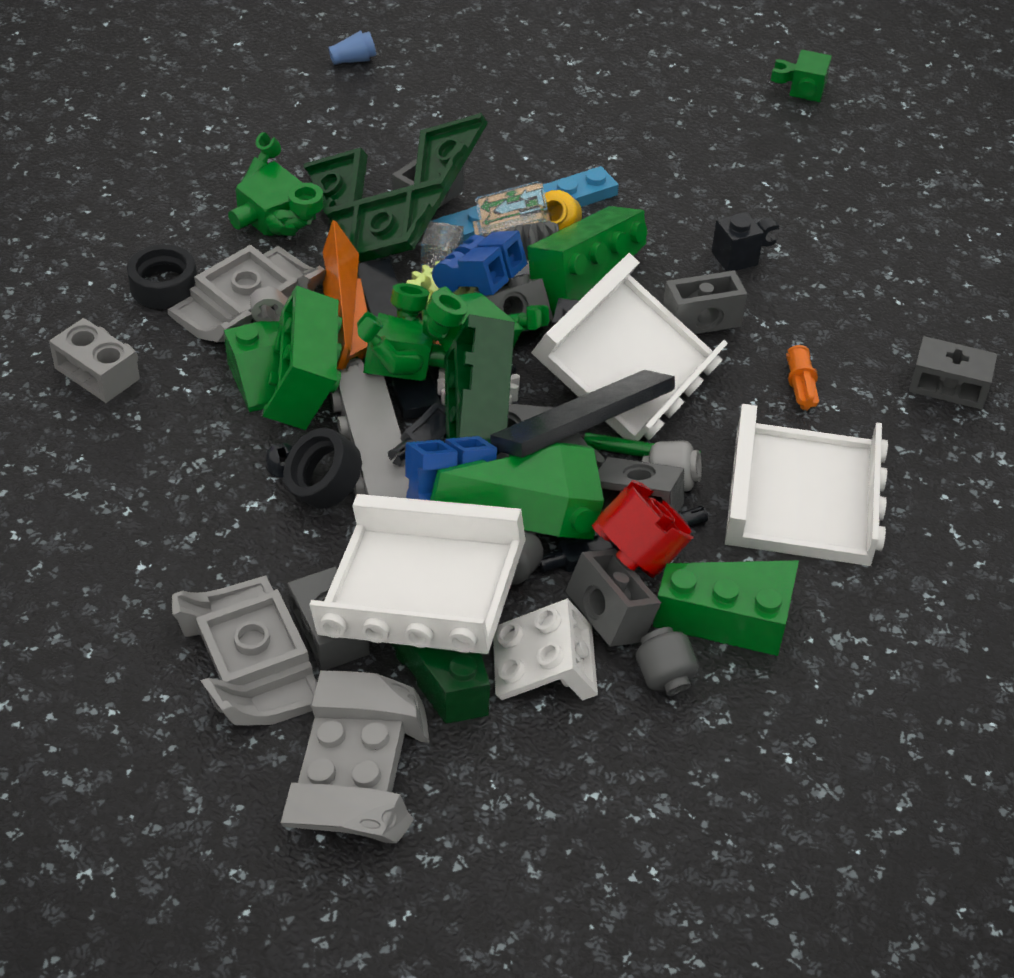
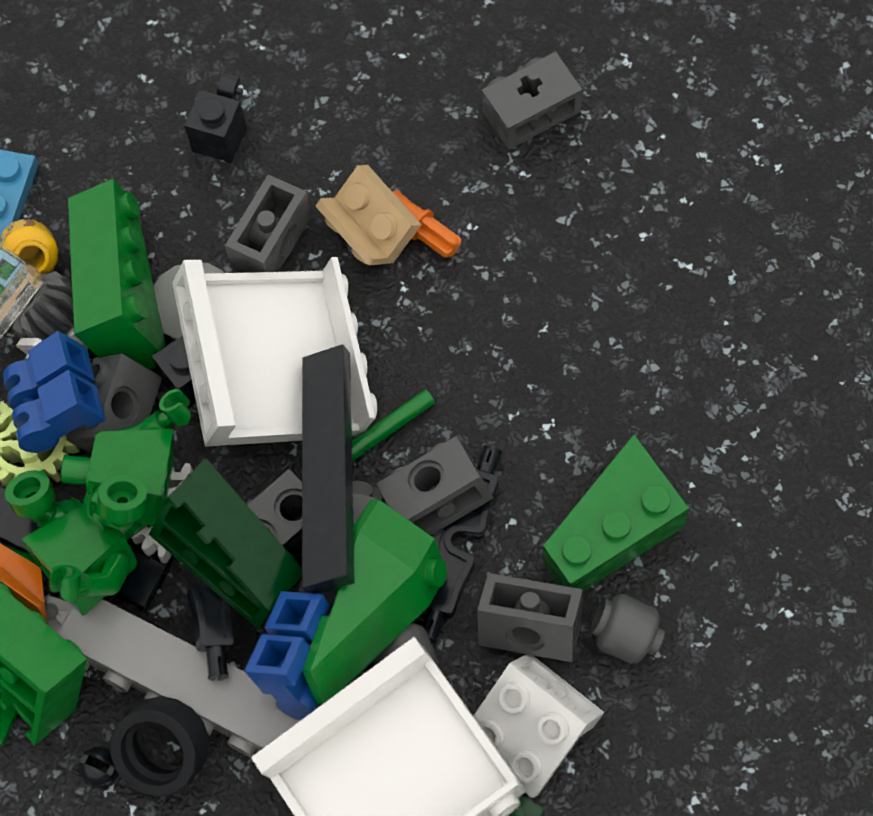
camera: 40 degrees left, 20 degrees up
(643, 529) = (497, 535): red brick -> none
(678, 455) = (424, 427): light grey head -> none
(773, 348) = (369, 218): none -> tan bracket
(807, 492) = (544, 342): white panel -> none

